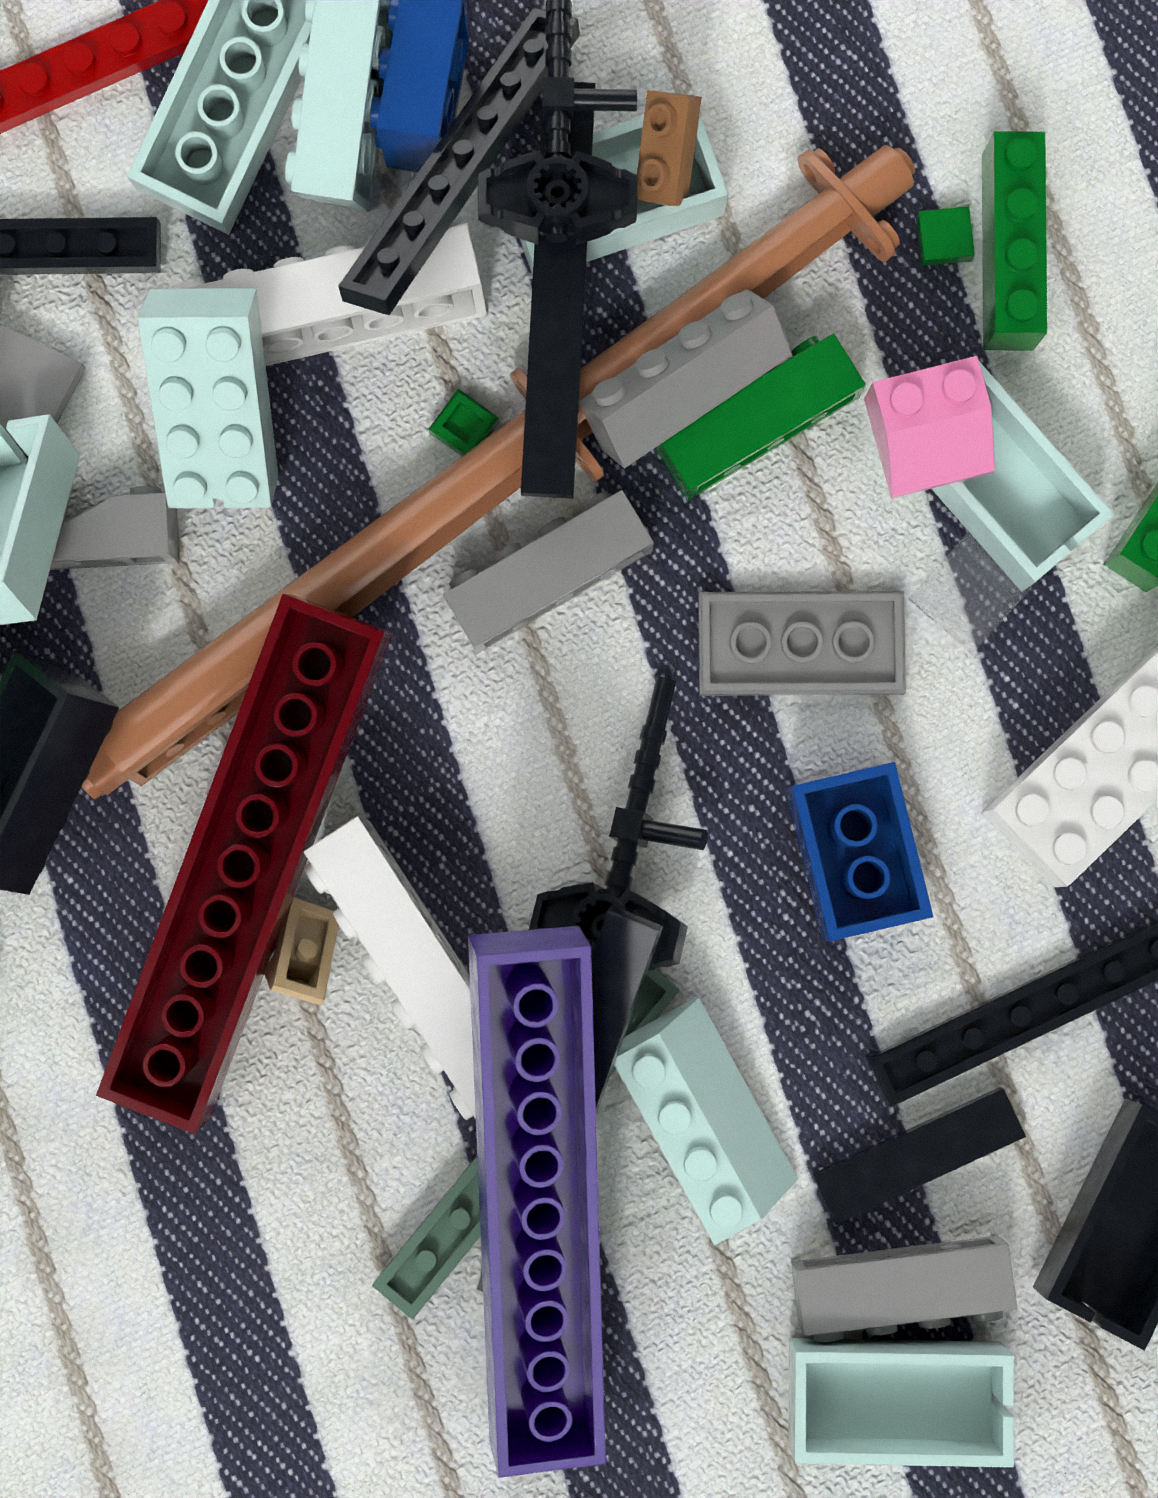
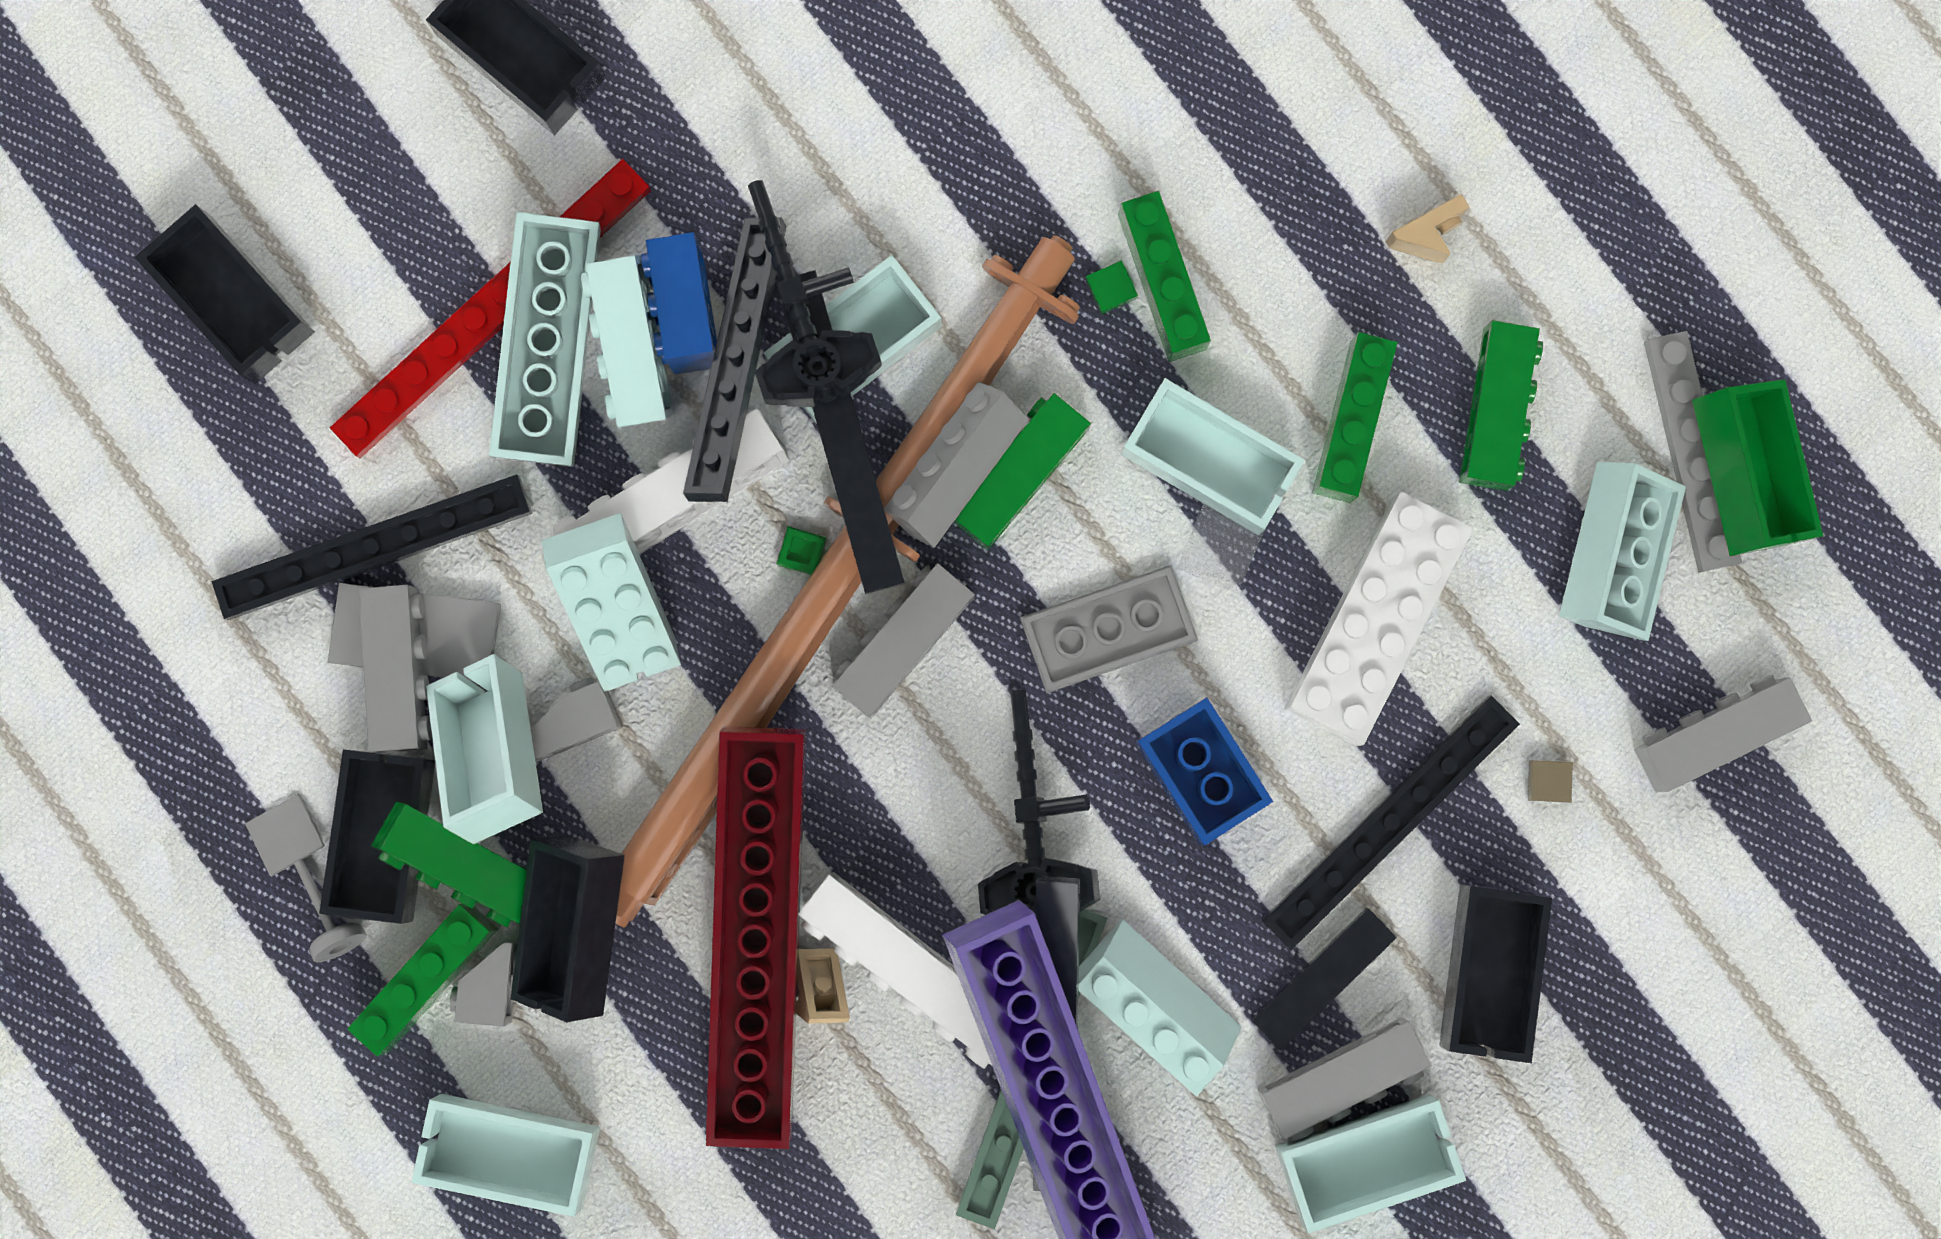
camera: 25 degrees left, 0 degrees up
(667, 147) = (885, 301): medium nougat bracket -> none
(932, 426) = (1150, 443): bright pink slope -> none

